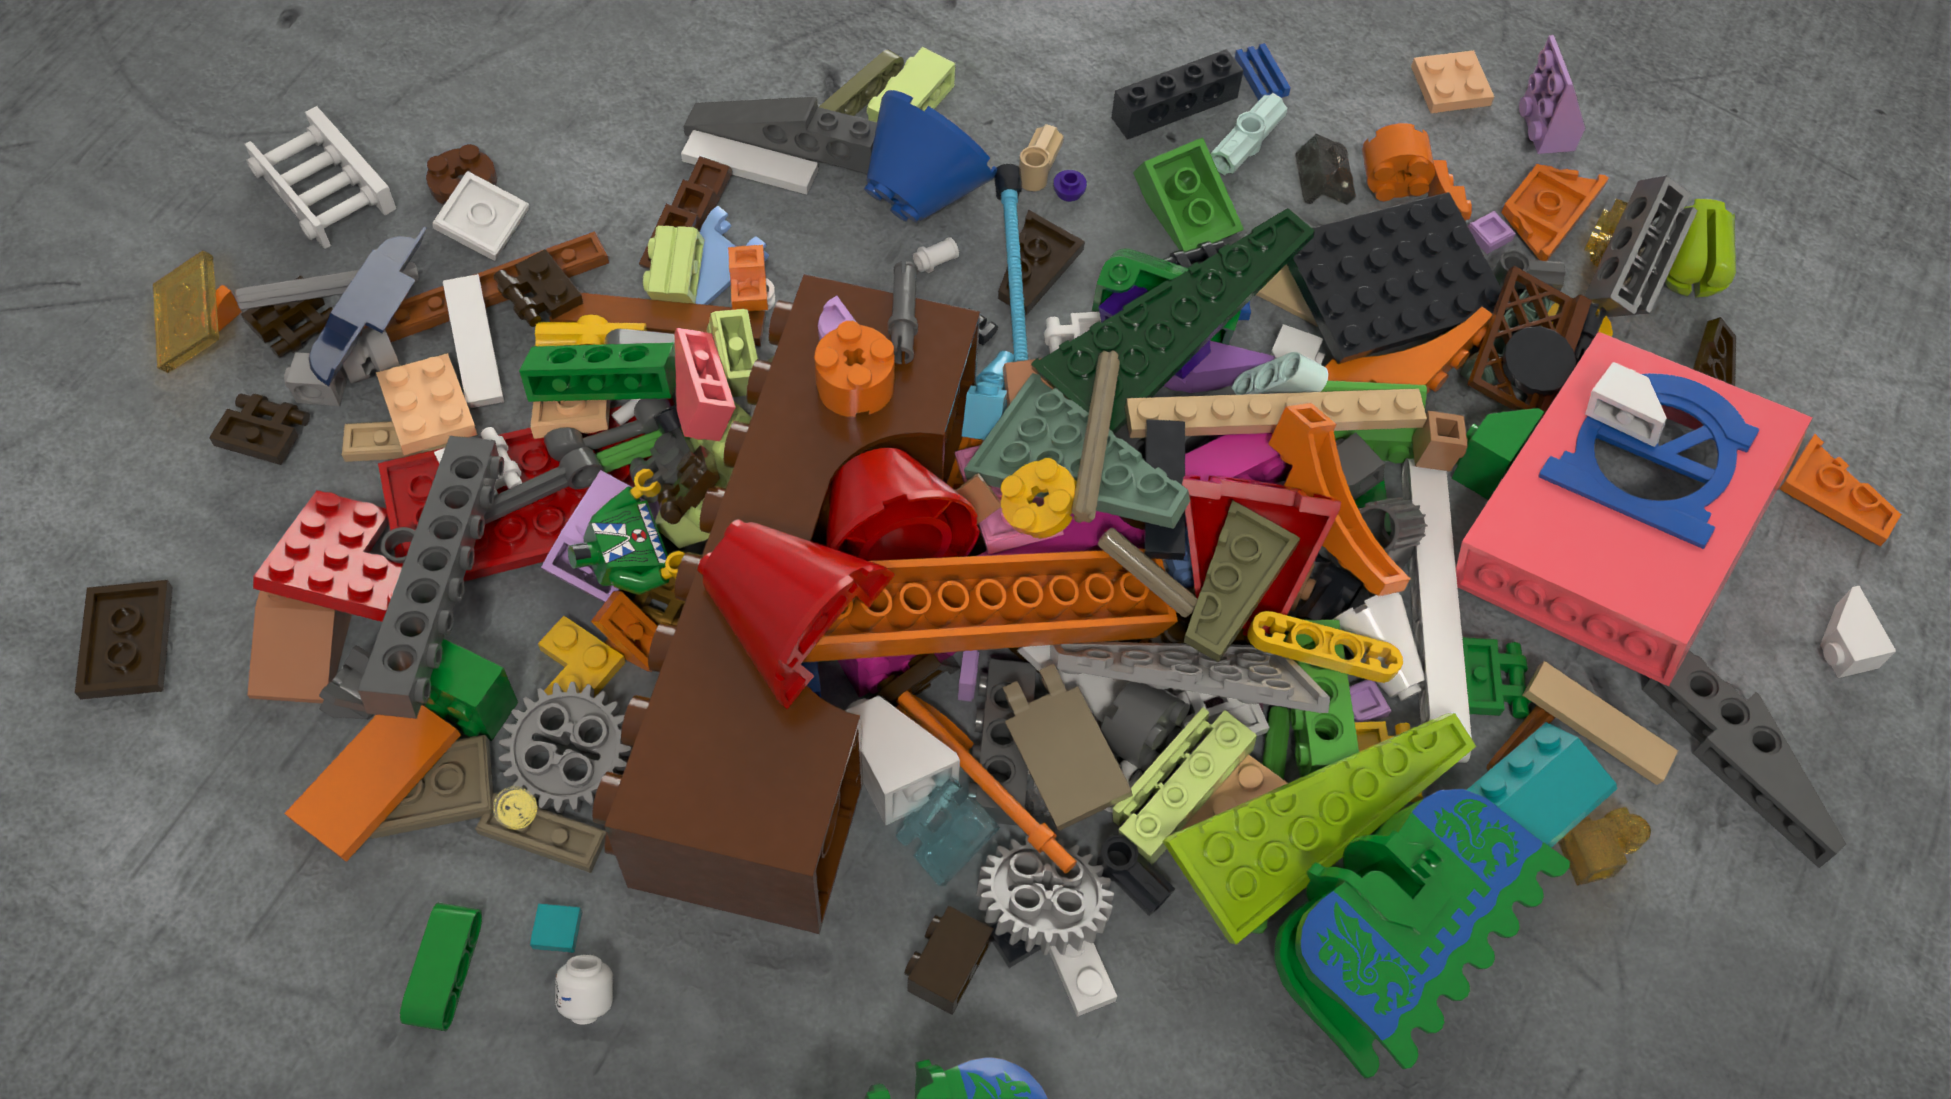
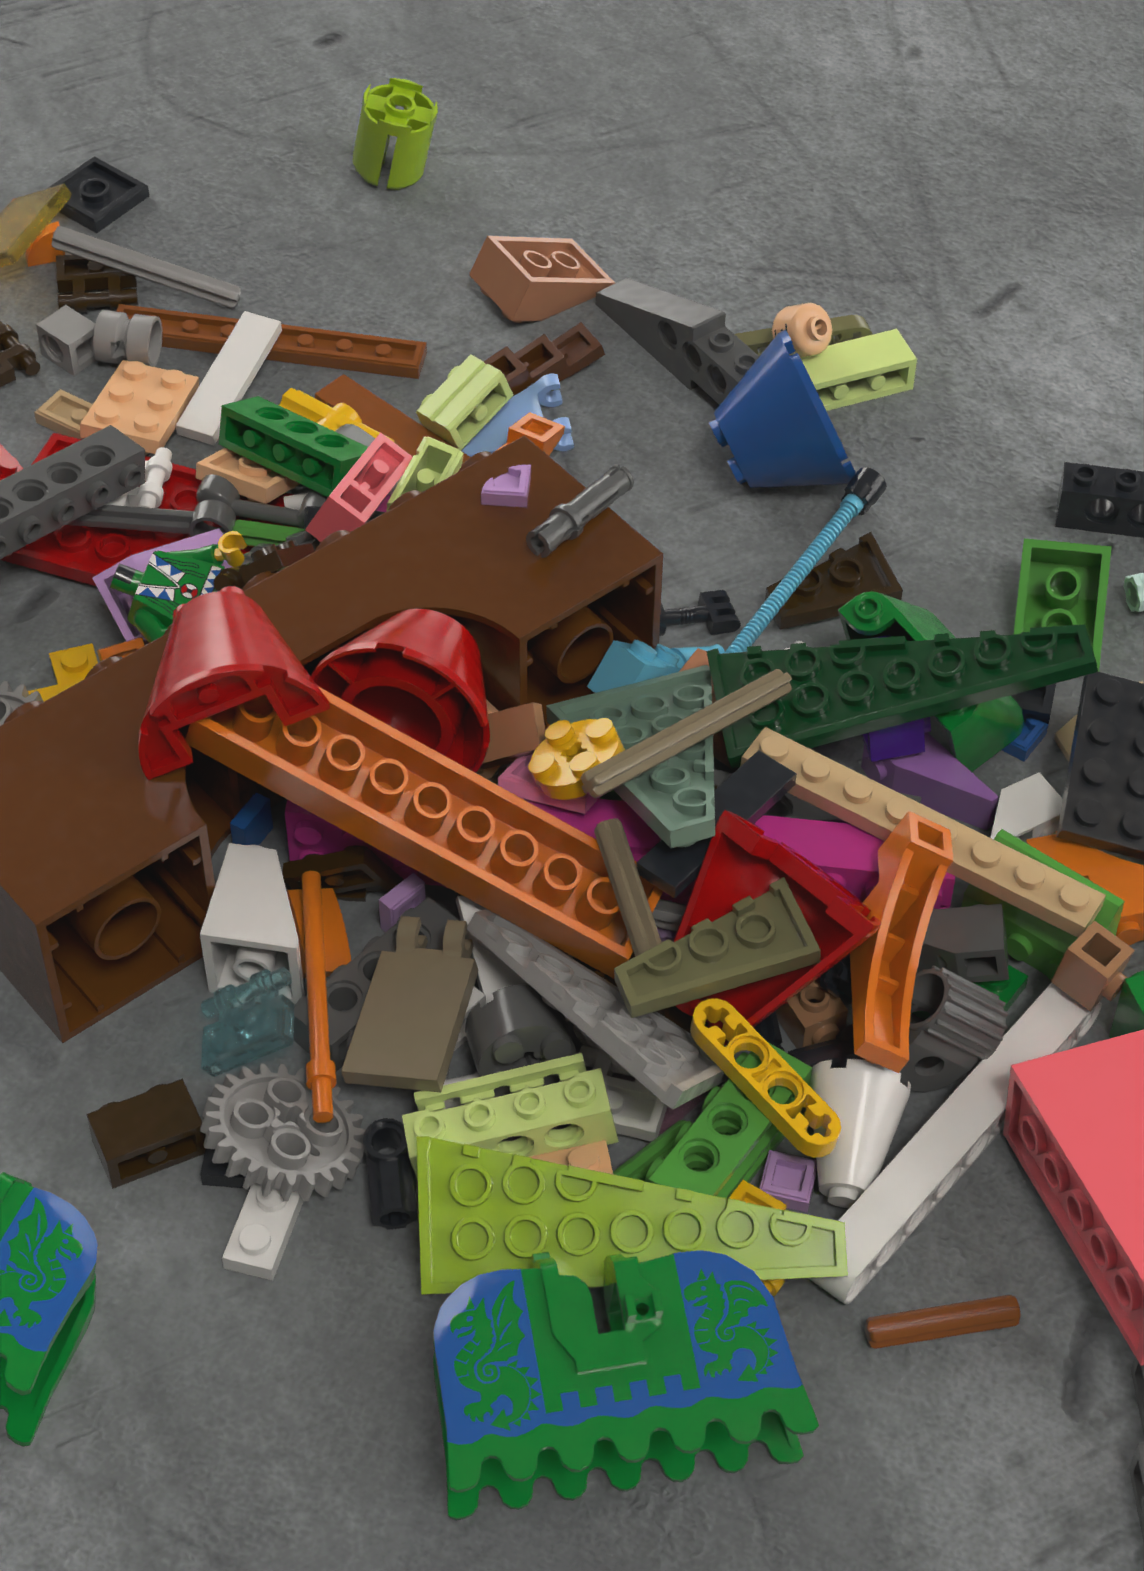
camera: 40 degrees right, 10 degrees down
(223, 235) = (100, 194): none -> black tile
(337, 151) = (259, 190): white fence -> none
(367, 301) = (156, 289): piece -> none
(431, 73) = (382, 120): none -> lime cylinder
(453, 163) = (366, 229): reddish brown plate -> none
(480, 216) = (334, 278): white plate -> none
(548, 284) = (337, 359): dark brown plate -> none
(631, 135) = (536, 276): none -> nougat slope
(752, 161) = (636, 357): white tile -> none
(854, 369) = (478, 530): orange brick -> none
(870, 81) = (807, 327): none -> light nougat head
(935, 255) = (736, 526): white pin -> none
(1039, 157) = (923, 492): tan piece -> none
(1069, 185) = (943, 535): dark purple plate -> none
(1283, 375) = (978, 808): light aqua beam -> none
(1484, 679) = (941, 1232): green plate -> none
(1547, 783) = (886, 1367): teal slope -> none
(1599, 845) = (910, 1465): clear yellow brick -> none
(1600, 723) = (1033, 1360): tan tile -> none

